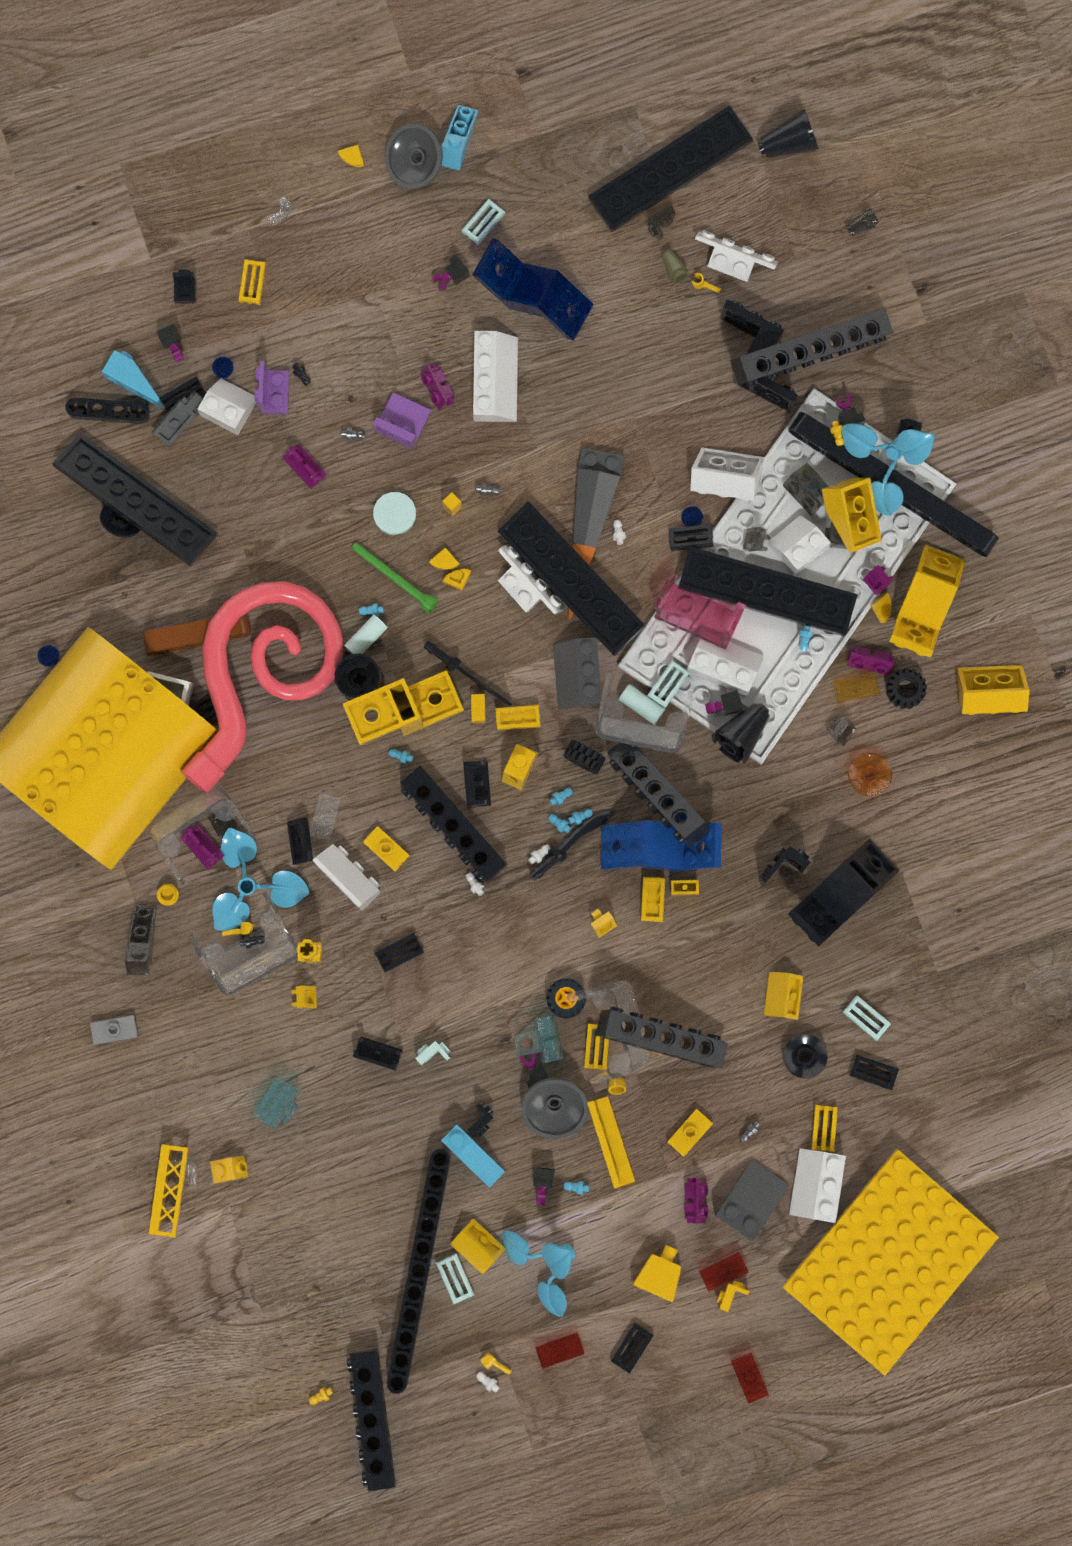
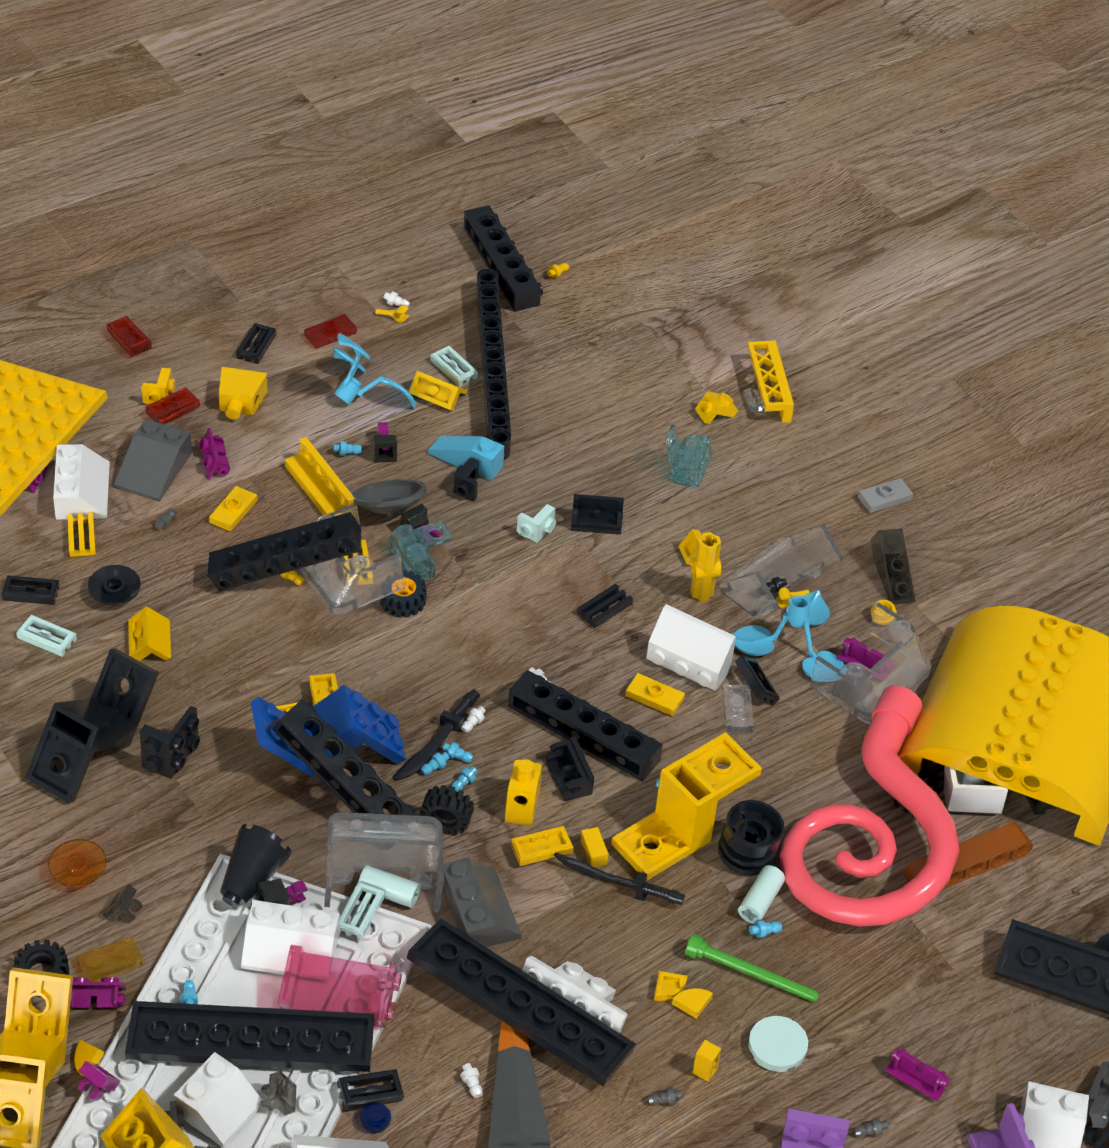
camera: 160 degrees right, 35 degrees down
(602, 923) = (380, 664): yellow tile -> none

